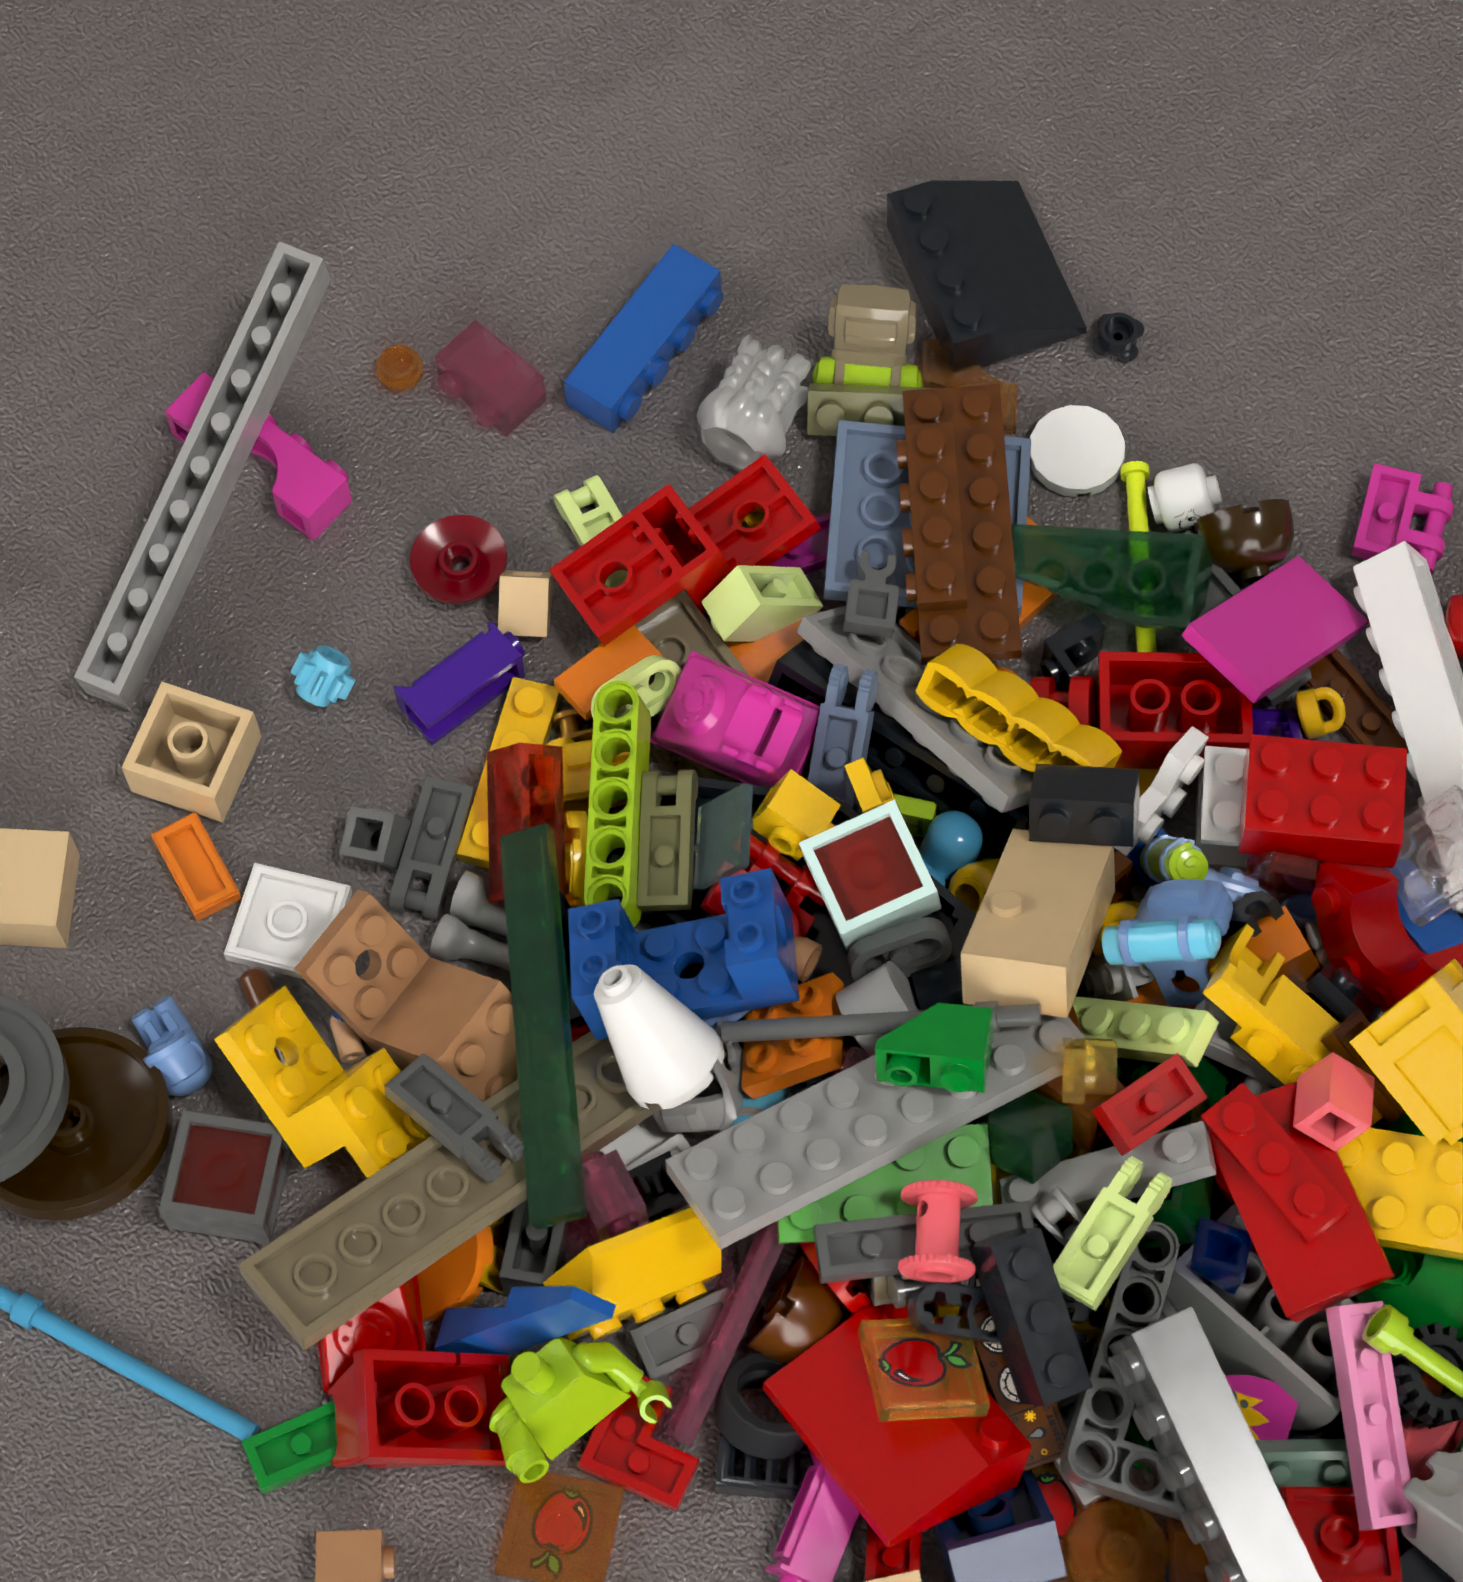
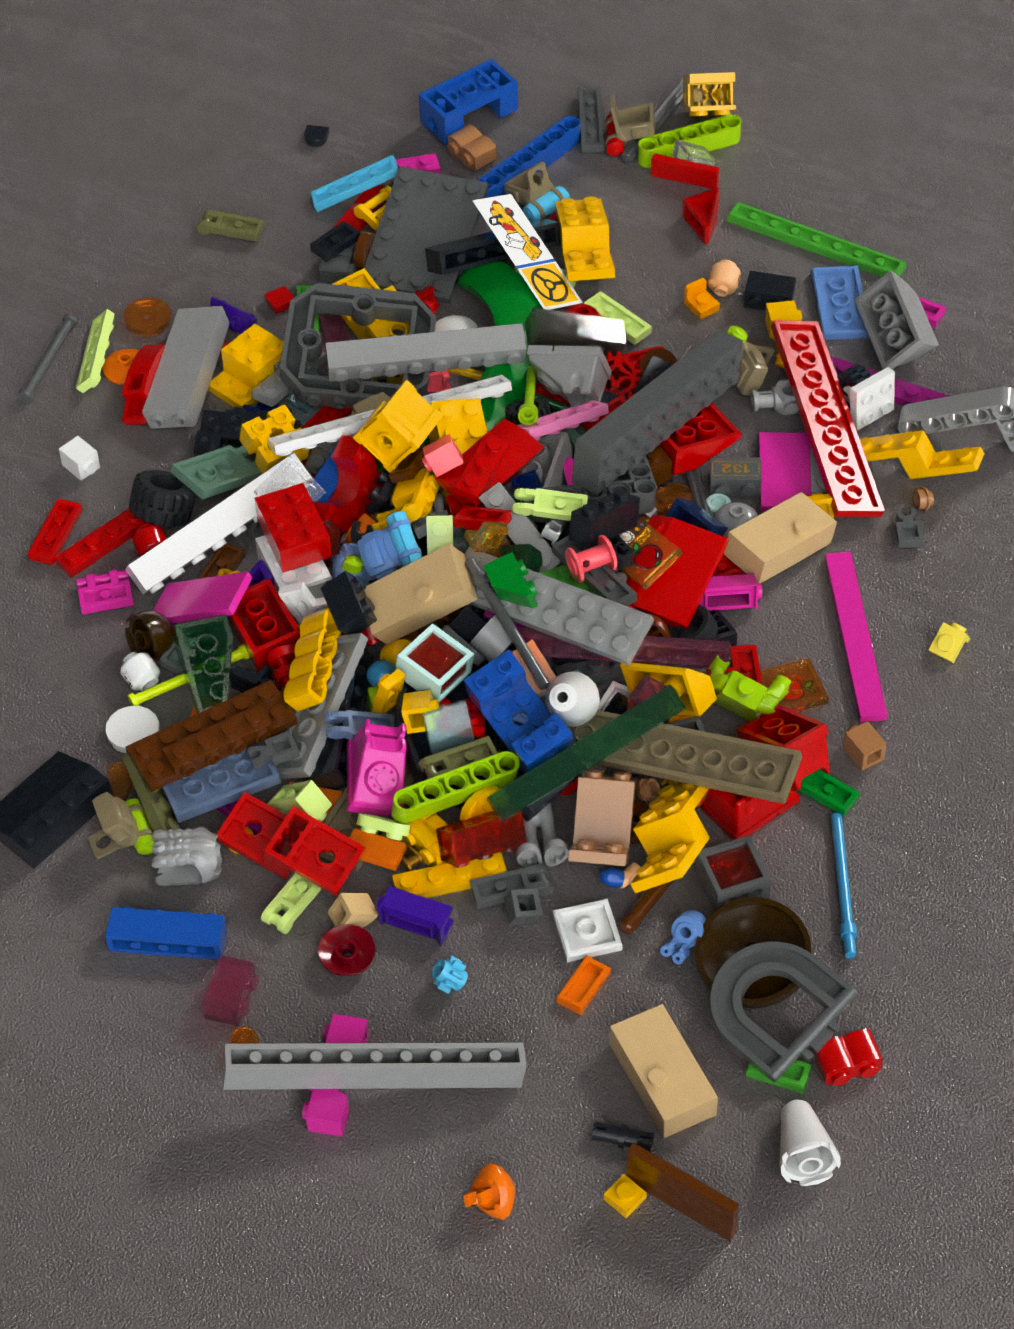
camera: 120 degrees left, 15 degrees down
(192, 751) = (529, 1005): tan brick -> none
(453, 1115) = (654, 765): dark grey hinge -> none
(527, 1320) = (719, 699): blue slope -> none
(1121, 325) = (53, 733): black plate -> none

